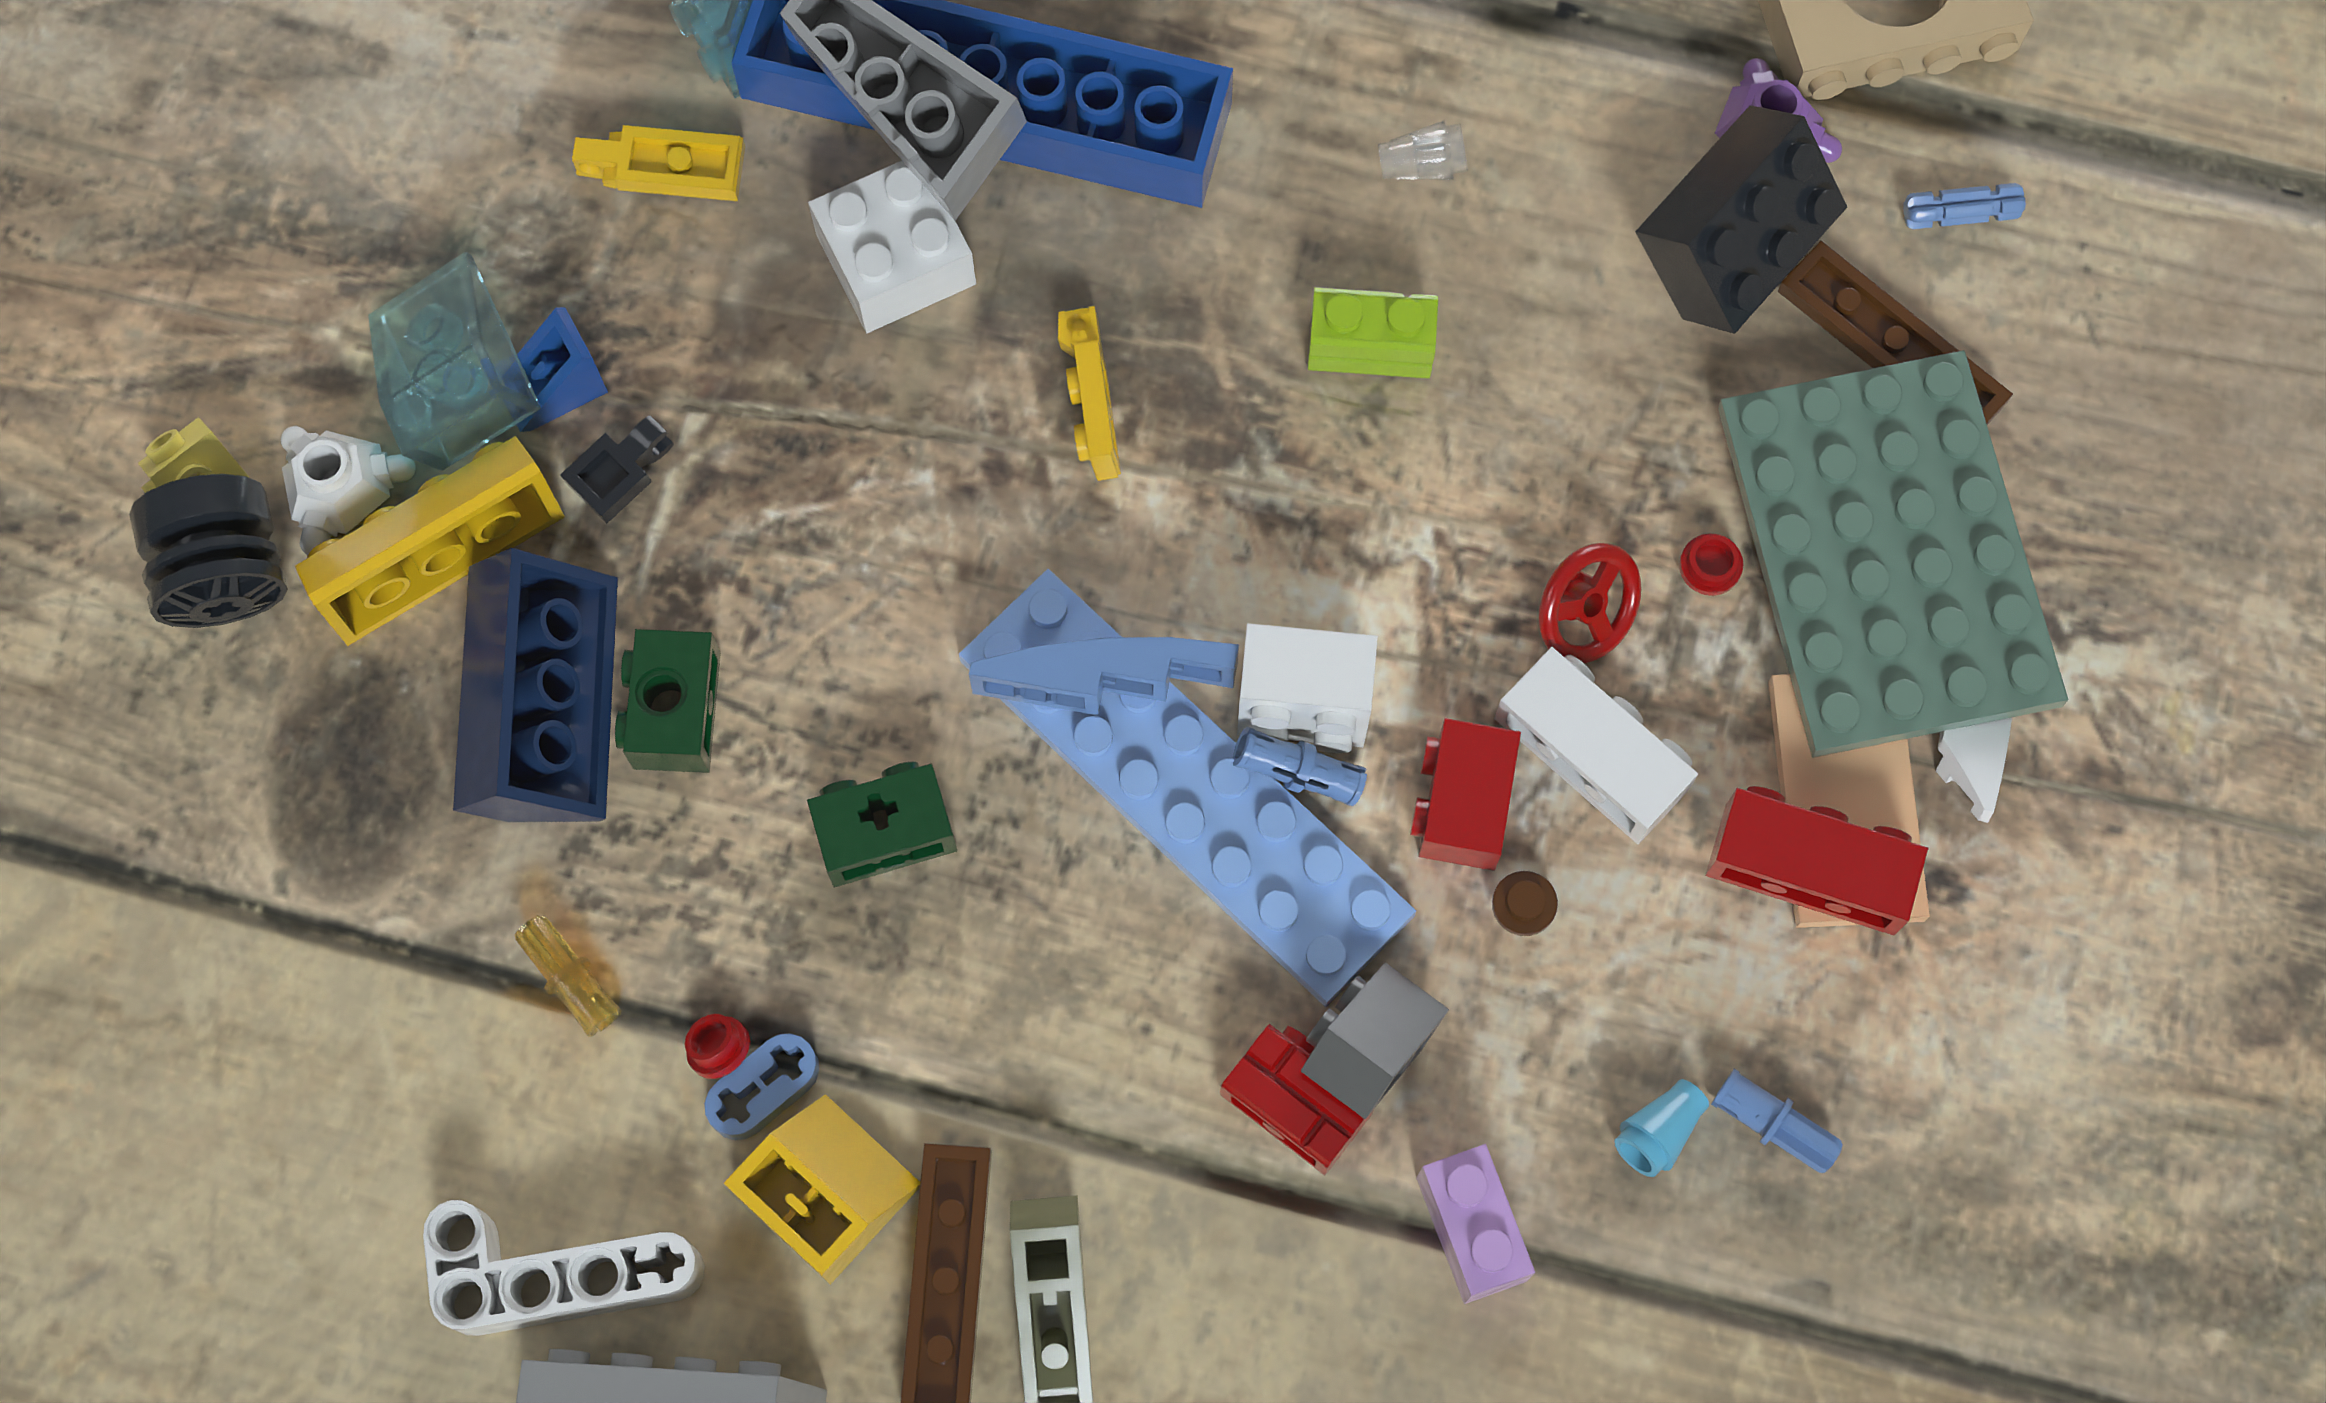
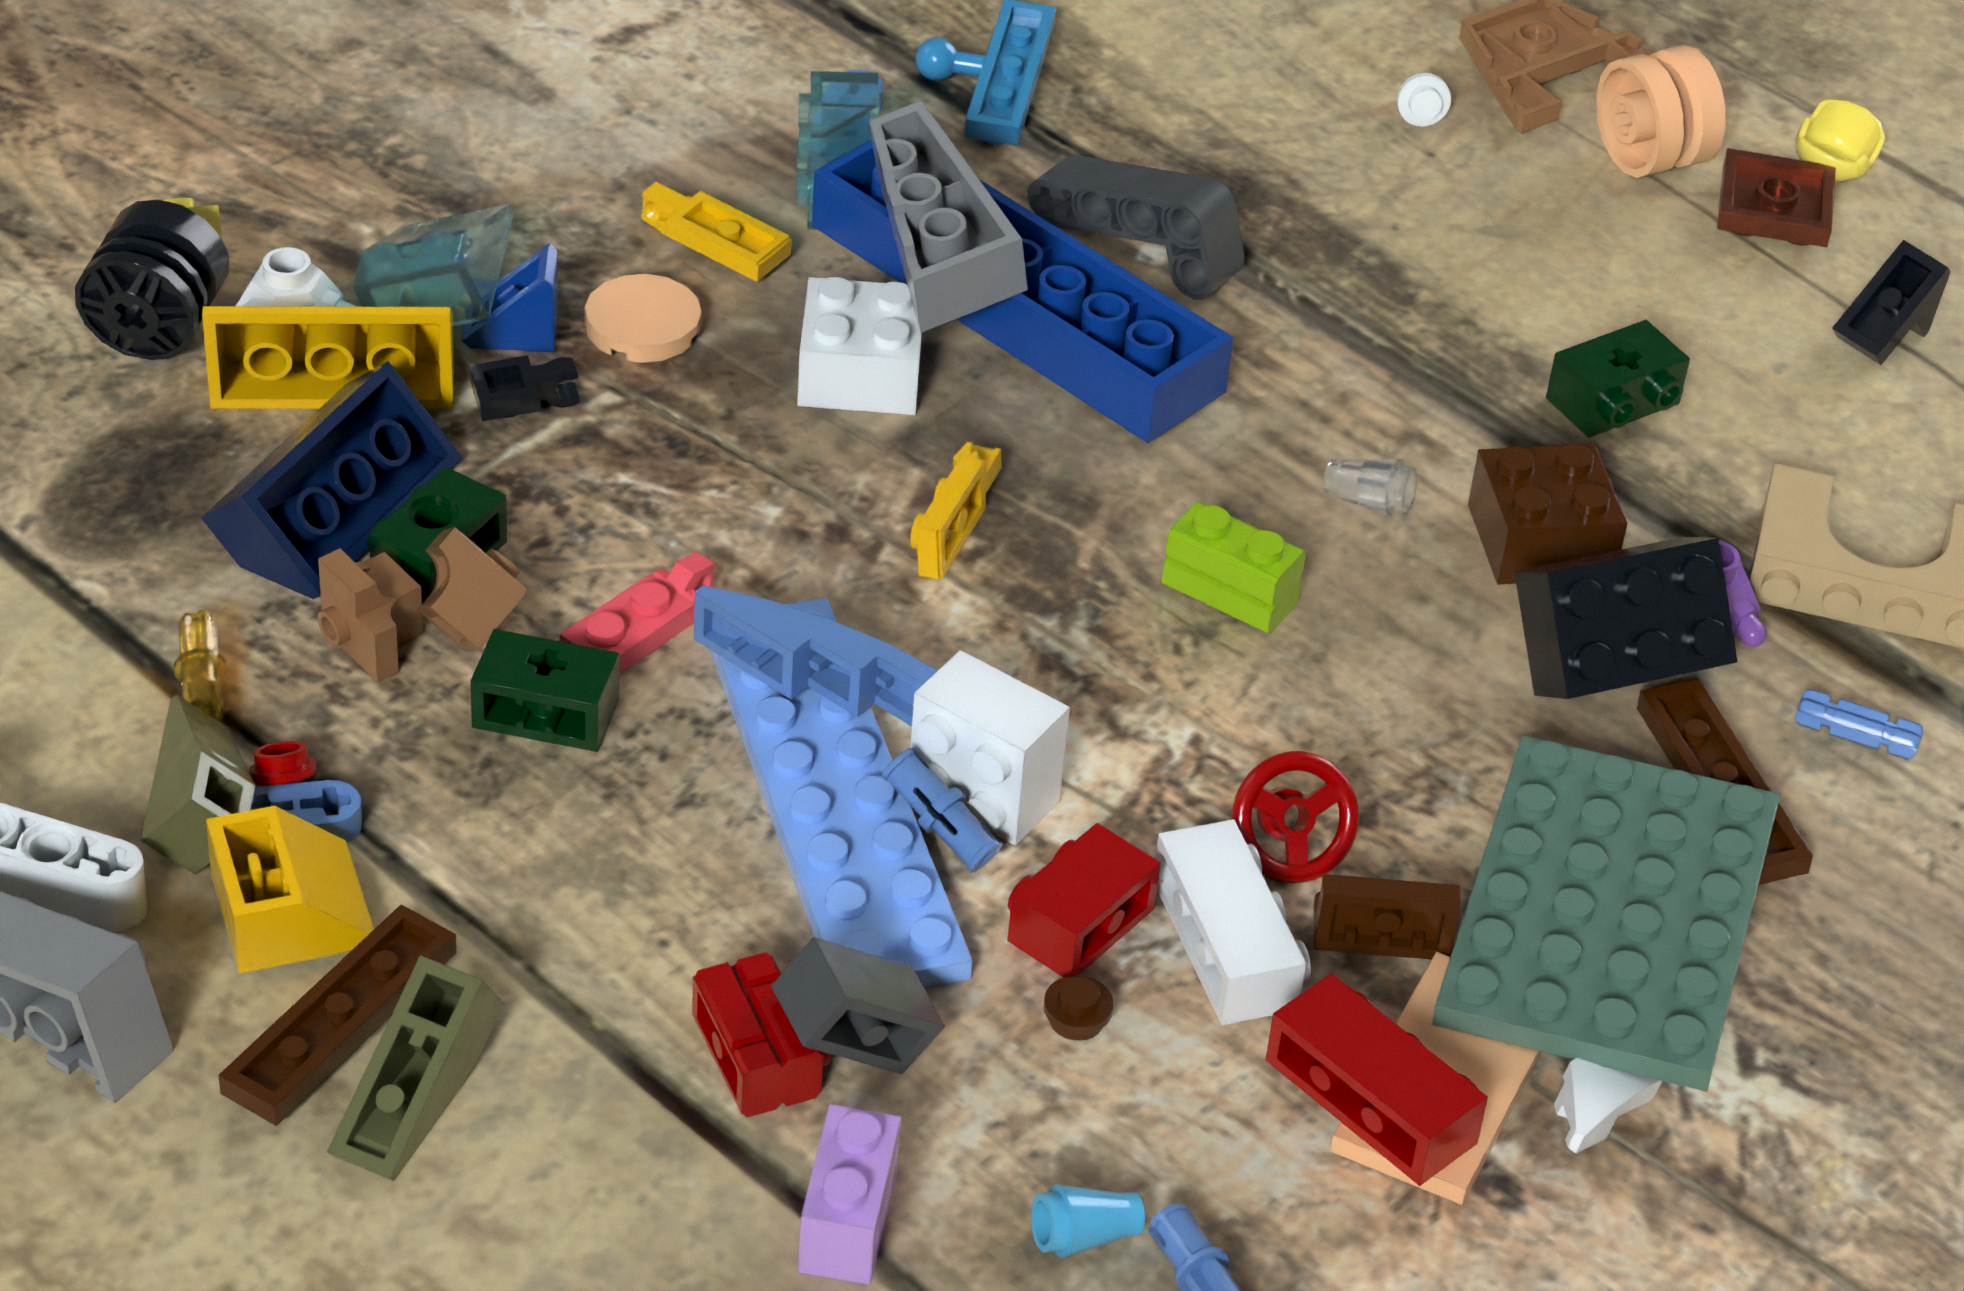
camera: 25 degrees right, 30 degrees down
(665, 308) = (643, 317): none -> light nougat tile
(666, 1114) = (194, 780): none -> olive slope
(671, 827) = (368, 609): none -> medium nougat brick
(757, 766) = (471, 589): none -> medium nougat brick
(899, 684) = (645, 612): none -> coral hinge
(1595, 109) = (1543, 506): none -> reddish brown brick
(1711, 564) = (1436, 854): red plate -> none
(1716, 667) = (1385, 916): none -> reddish brown bracket

